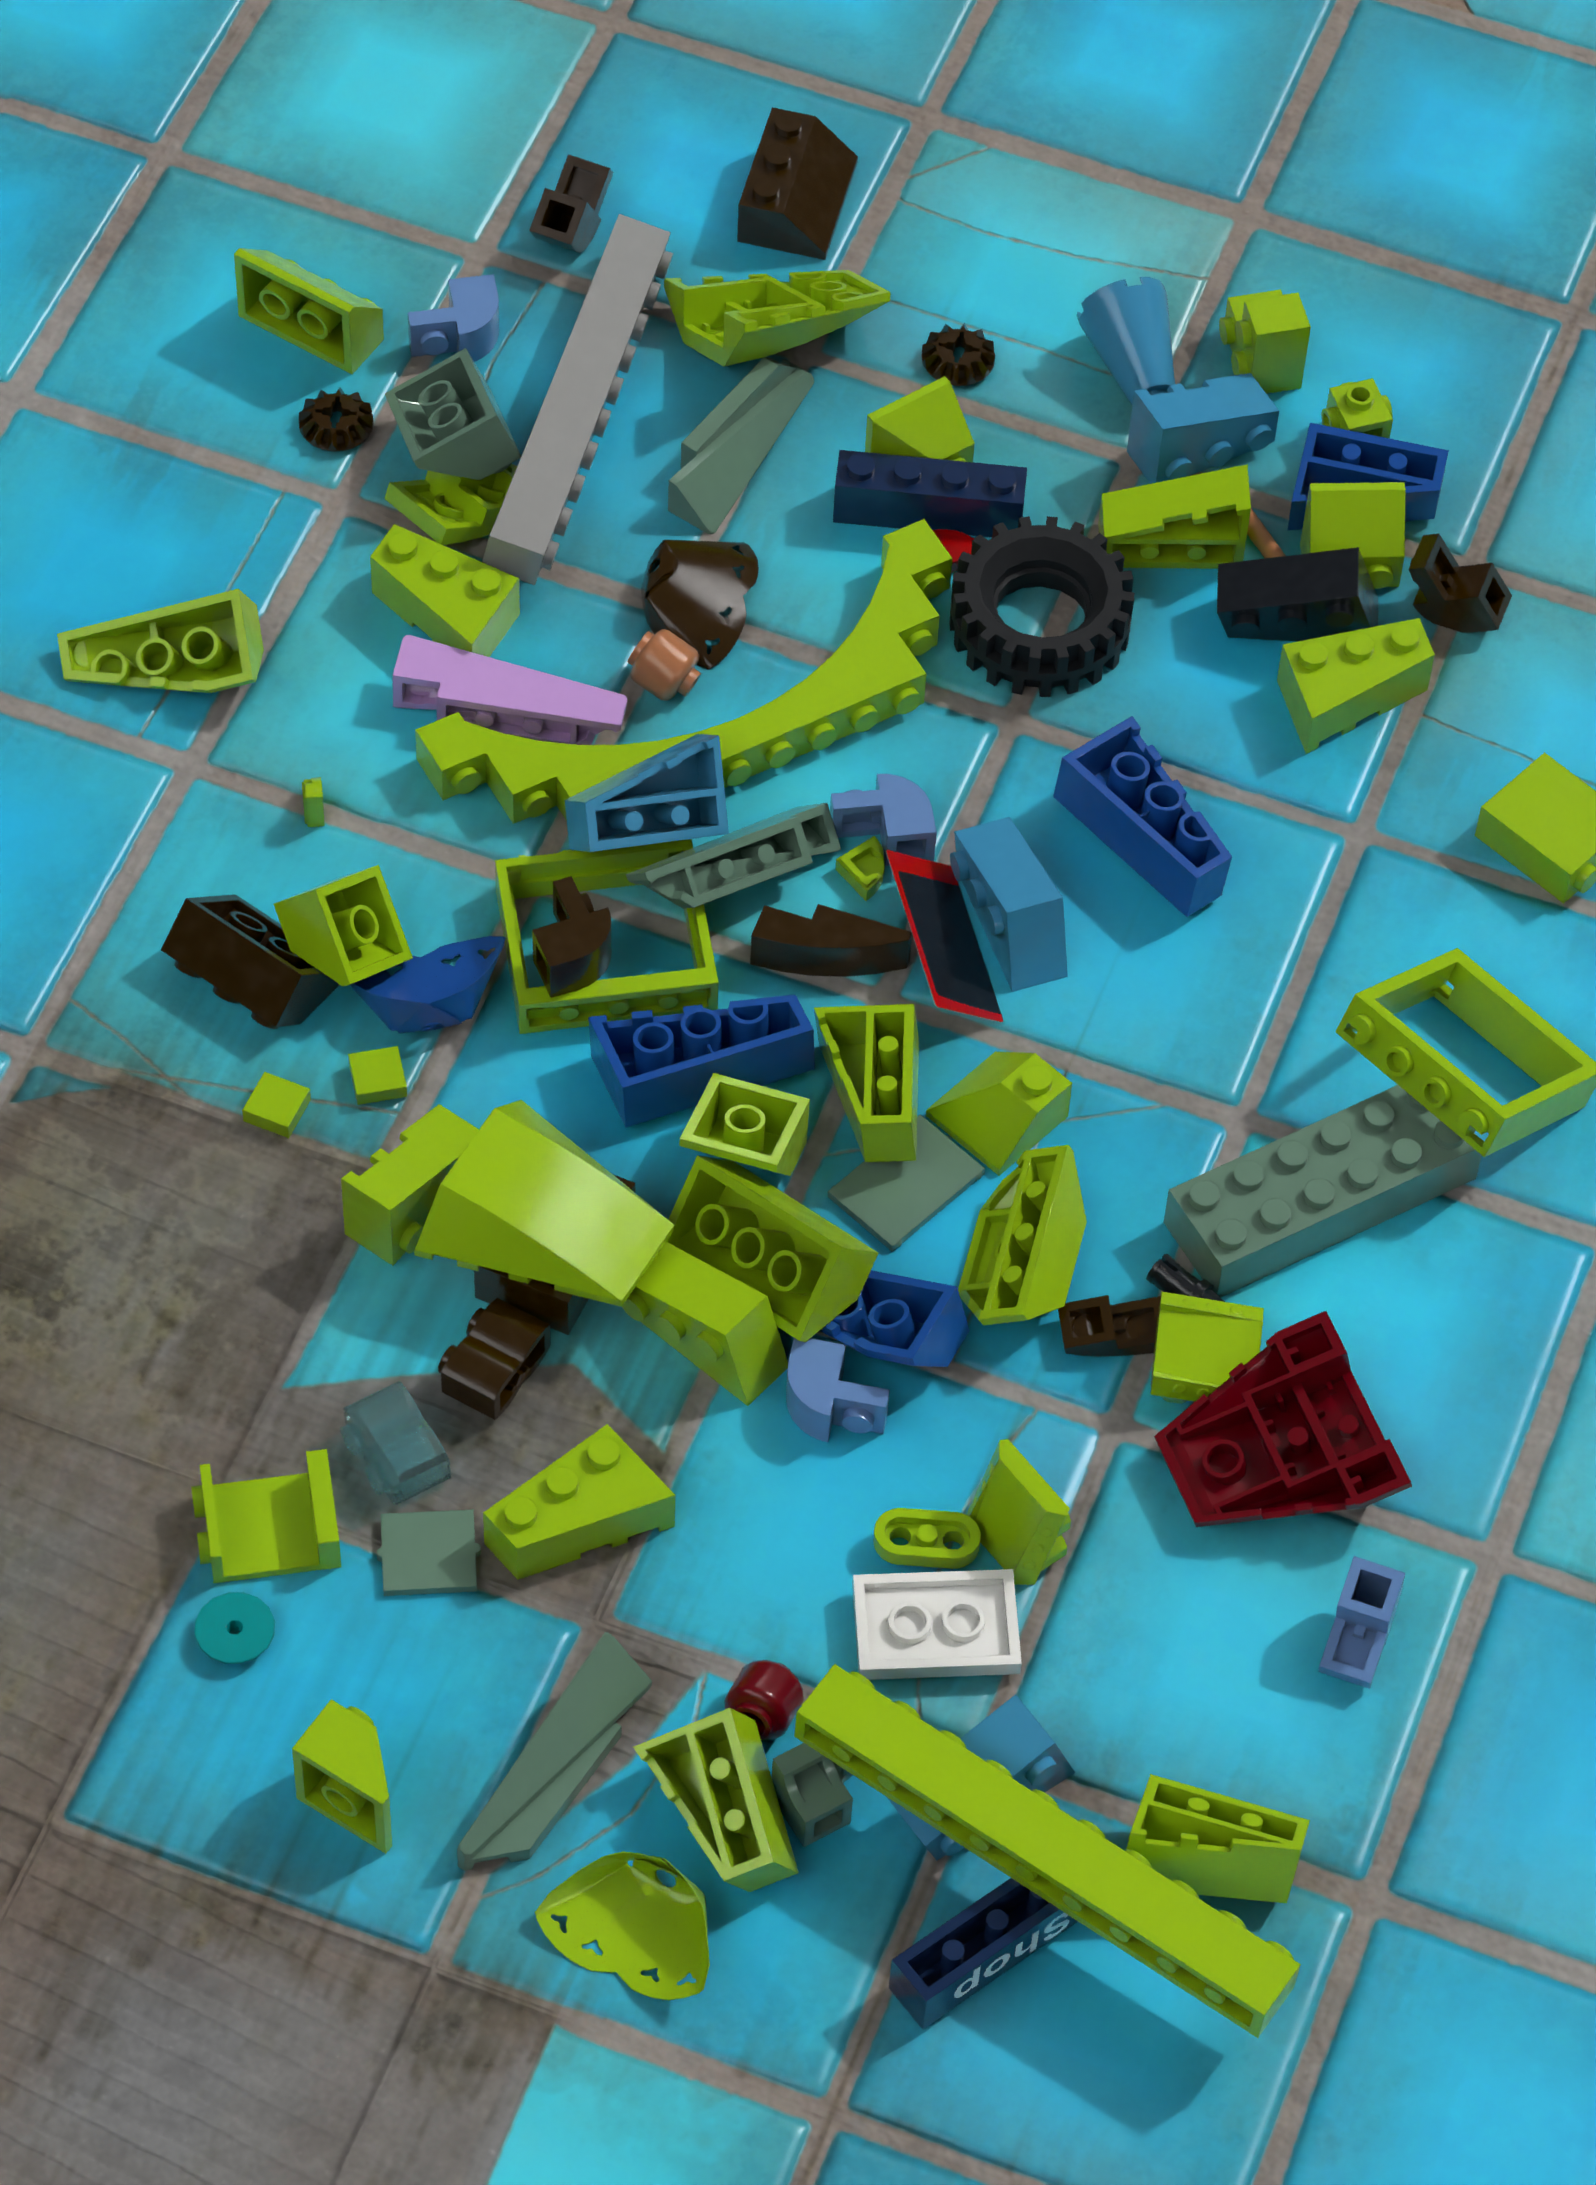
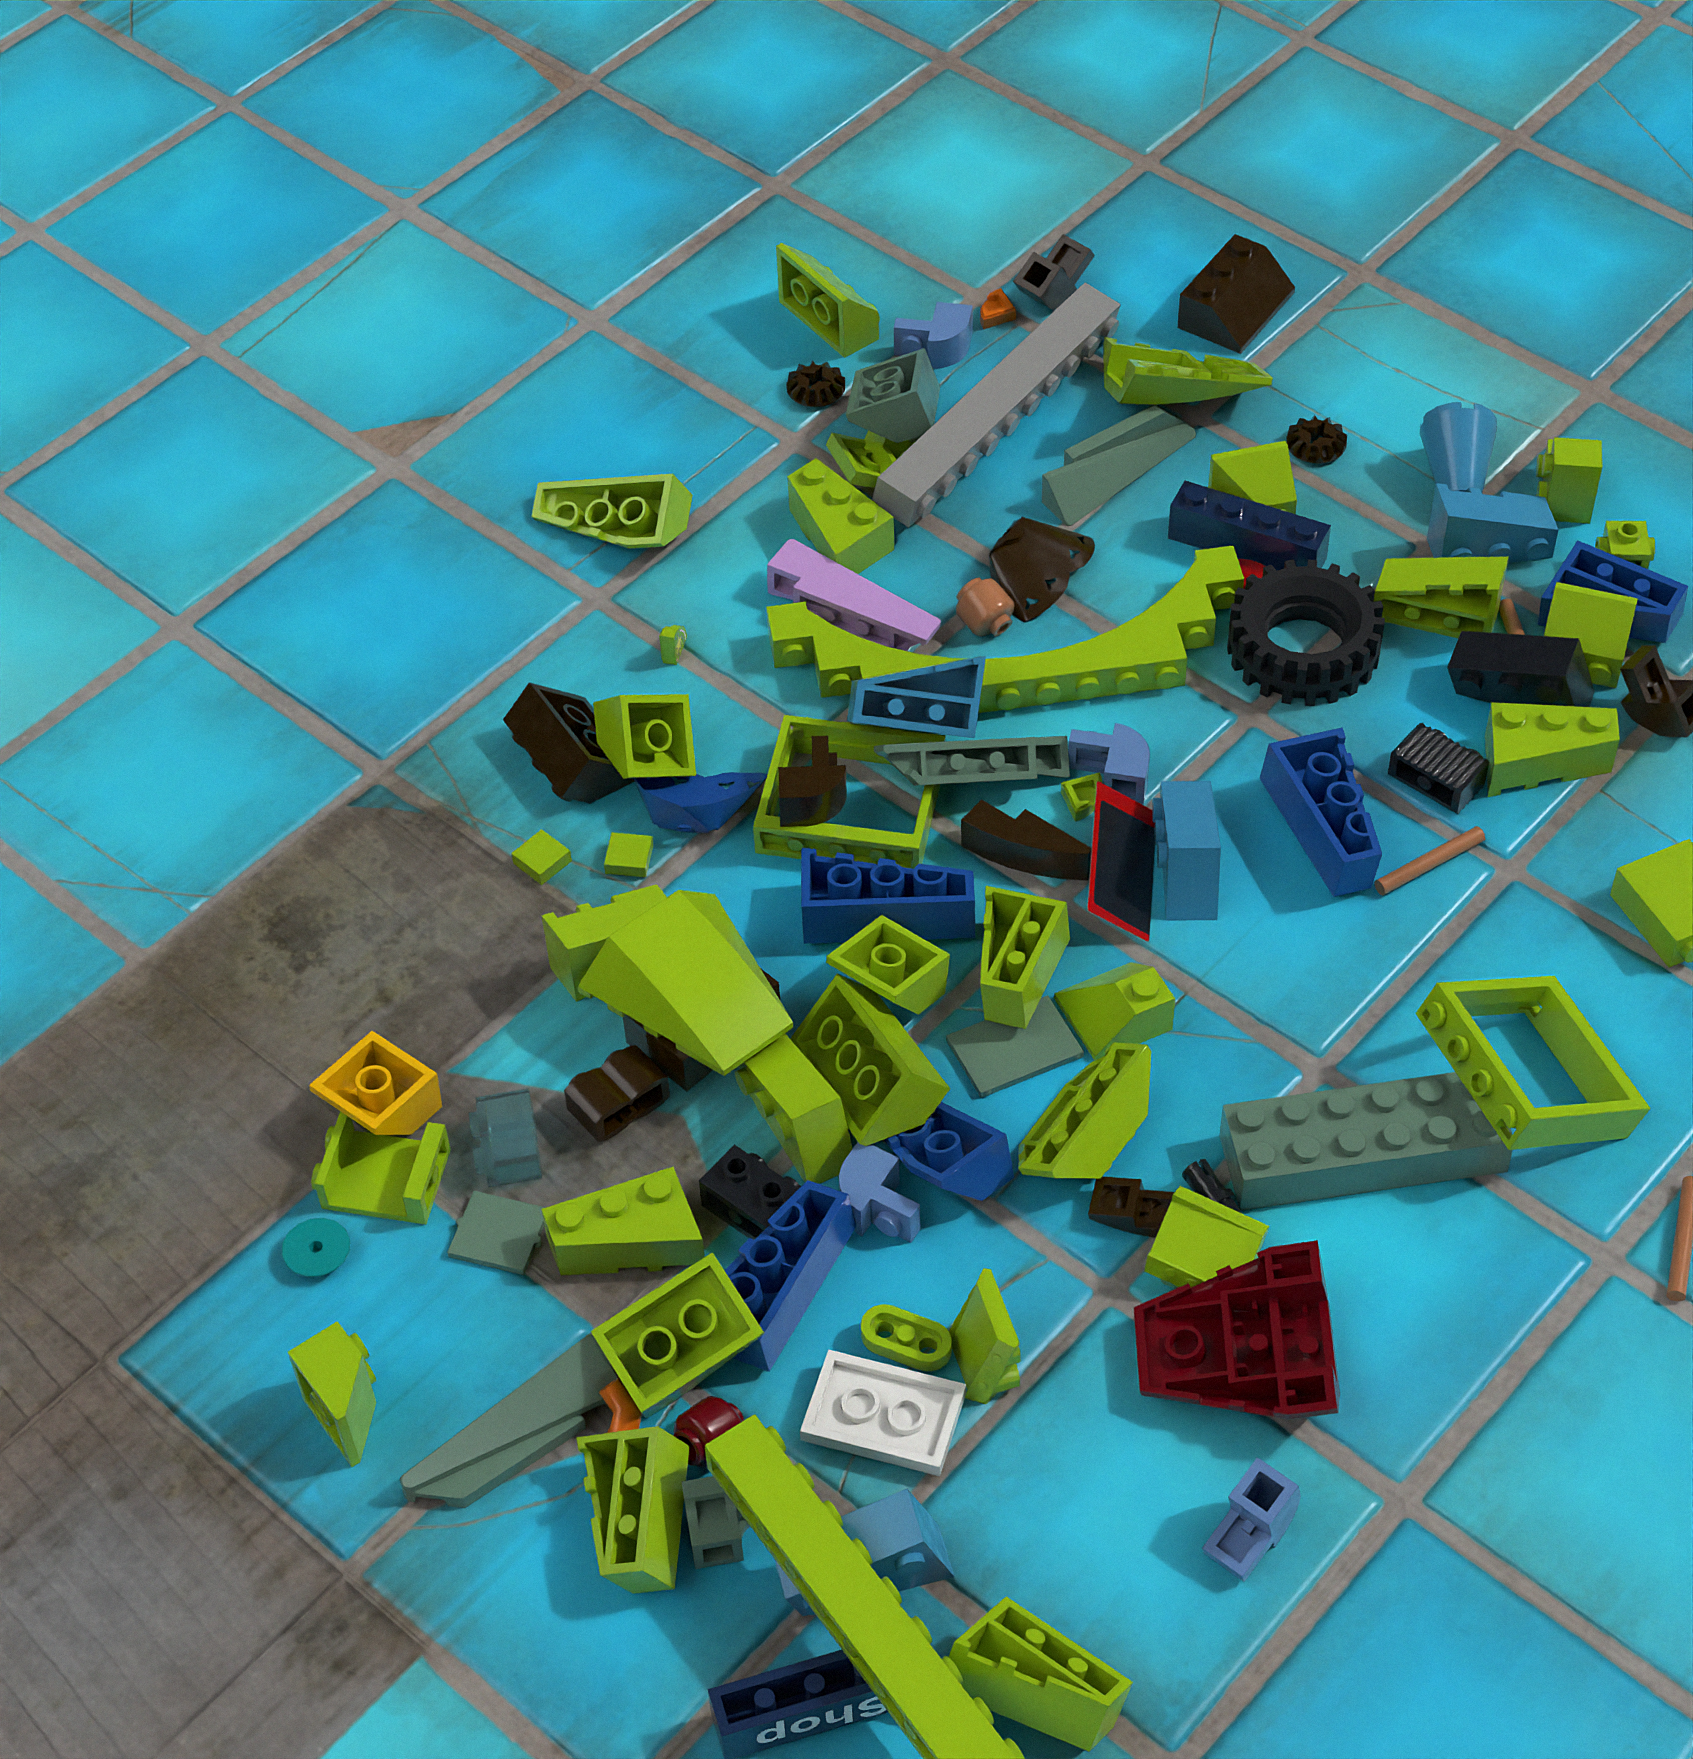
camera: 25 degrees right, 5 degrees down
(233, 1425) = (380, 1087): none -> yellow slope
(513, 267) = (996, 310): none -> orange tile
(634, 1922) = (524, 1587): lime piece -> none
(666, 1704) = (624, 1409): none -> orange arm
(699, 1434) = (744, 1191): none -> black brick
(699, 1605) = (677, 1335): none -> lime slope
(759, 1533) = (788, 1265): none -> blue wedge
(1246, 734) = (1438, 767): none -> black brick
(1272, 846) = (1429, 860): none -> nougat bar

